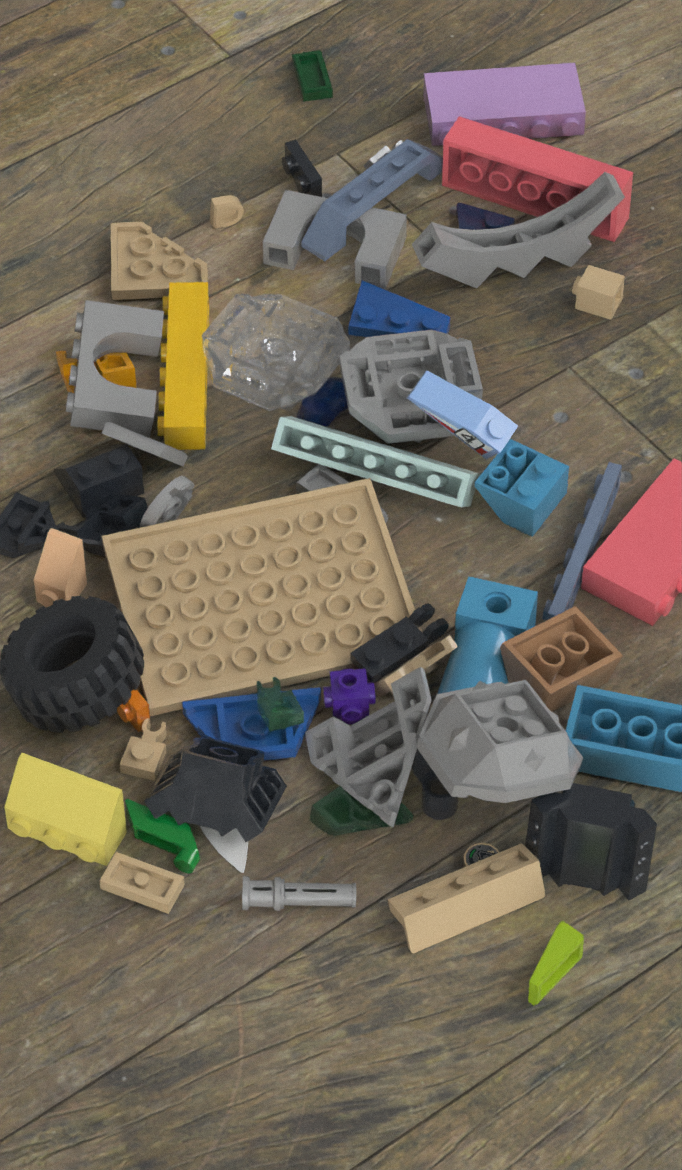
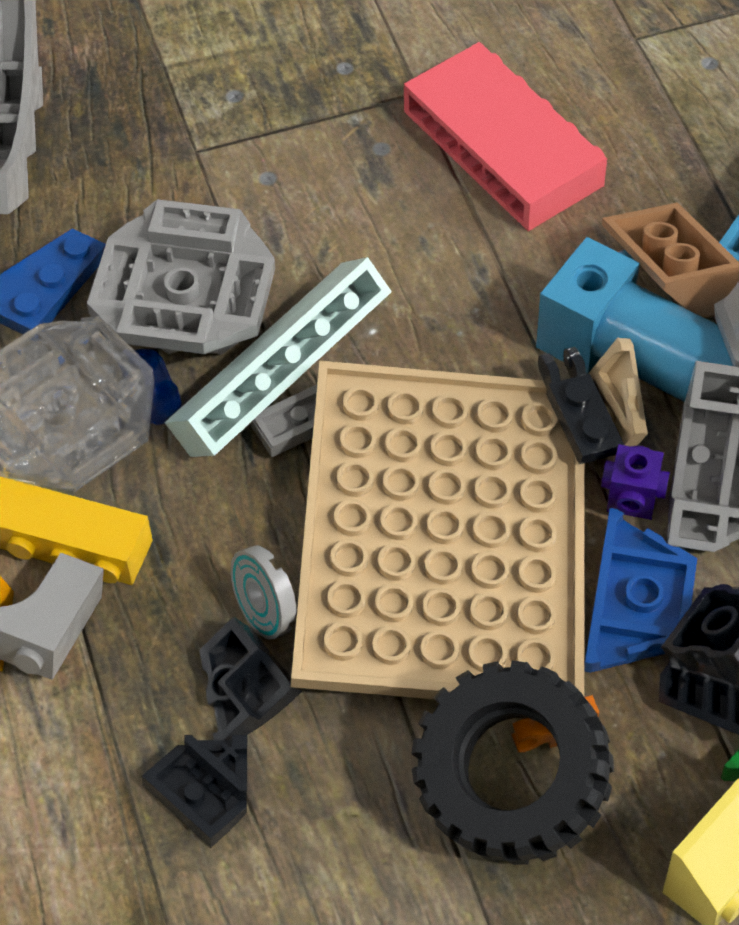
camera: 70 degrees left, 5 degrees up
(60, 568) = (326, 748): light nougat slope -> none
(101, 476) = (155, 666): black slope -> none
(144, 443) = (143, 591): light grey tile -> none
(145, 754) = (641, 733): tan plate -> none
(277, 707) = (645, 552): clear green plate -> none
(463, 414) = (277, 235): light blue slope -> none
(523, 486) = (382, 225): dark azure slope -> none
(586, 539) = (480, 199): sand blue plate -> none
(598, 291) = (109, 84): tan brick -> none

